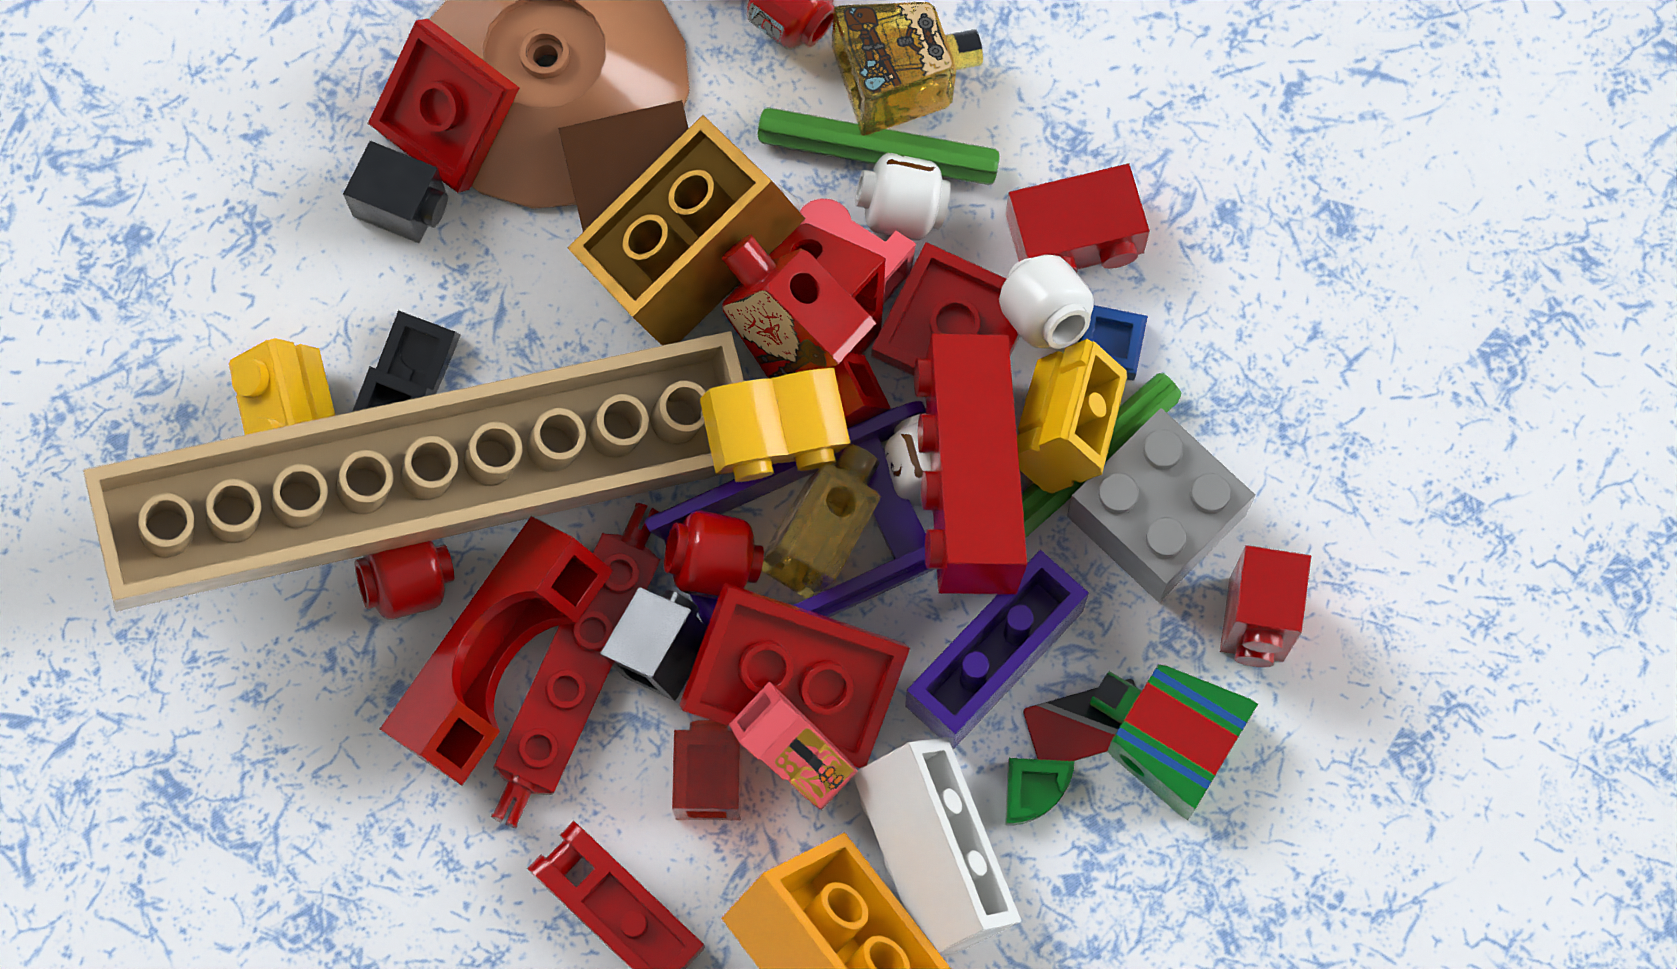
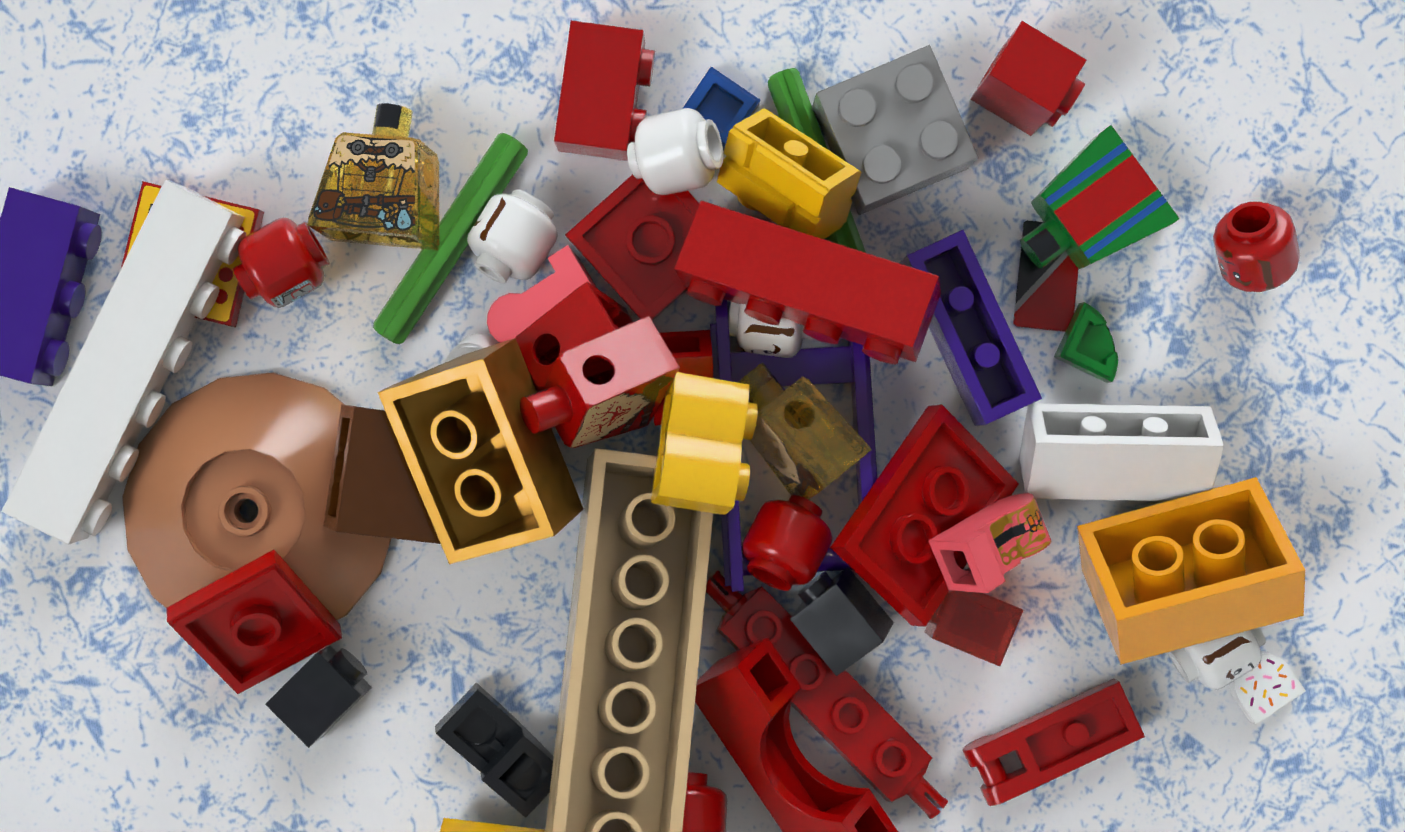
camera: 75 degrees left, 15 degrees up
(1203, 904) = (1256, 247): none -> red head

